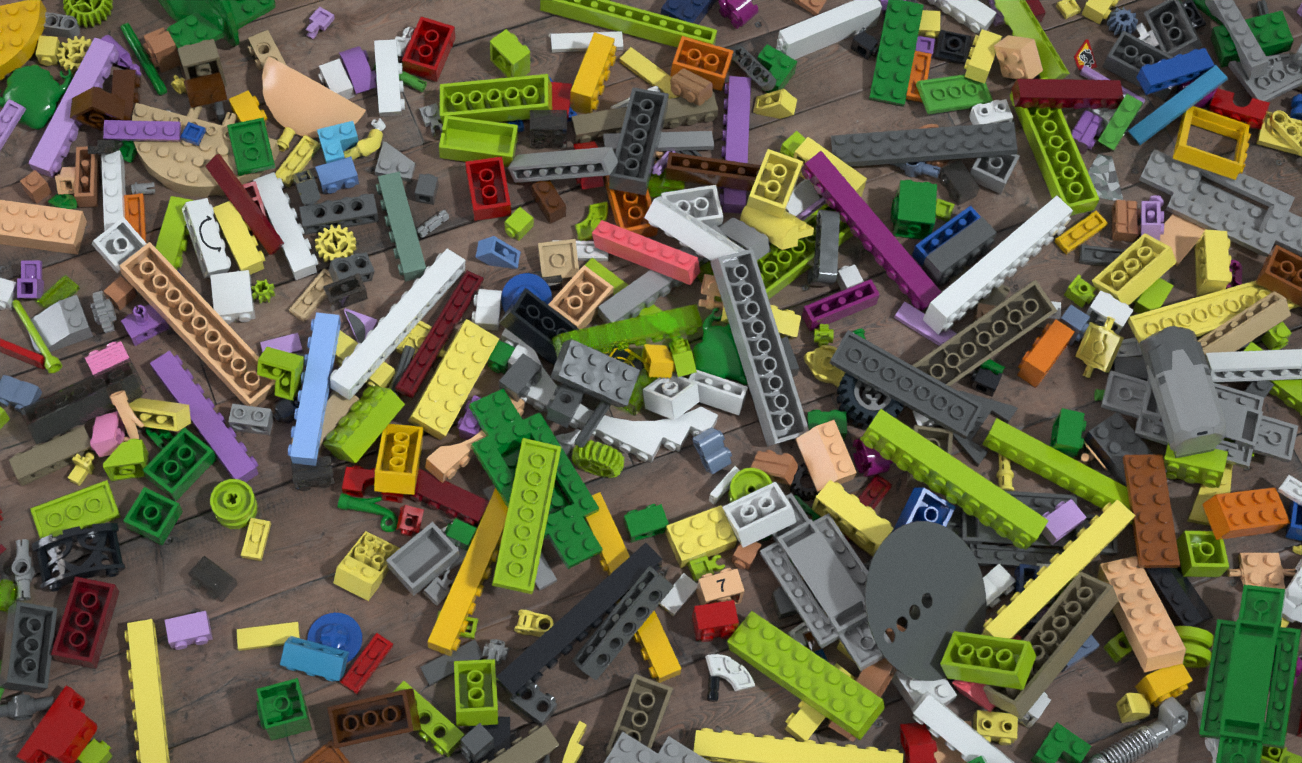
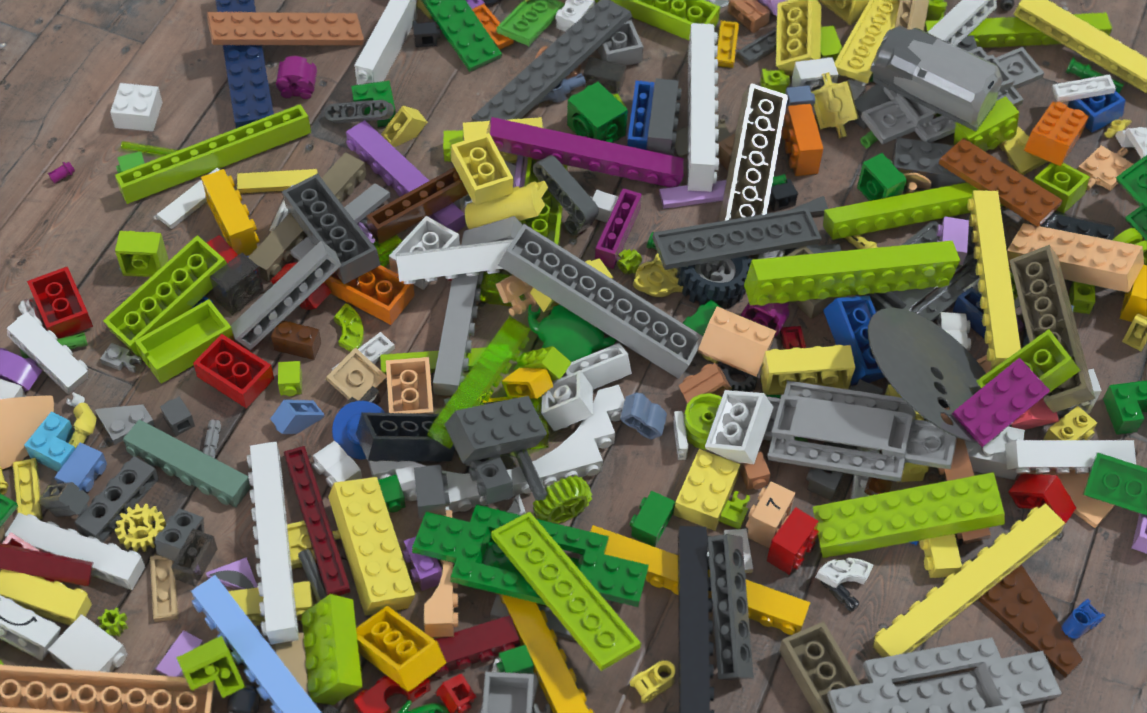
camera: 40 degrees left, 10 degrees down
(646, 252) = (428, 308): coral brick -> none
(691, 87) = (326, 159): medium nougat brick -> none
(703, 60) = (312, 139): orange brick -> none
(940, 659) = (1000, 402): none -> magenta plate

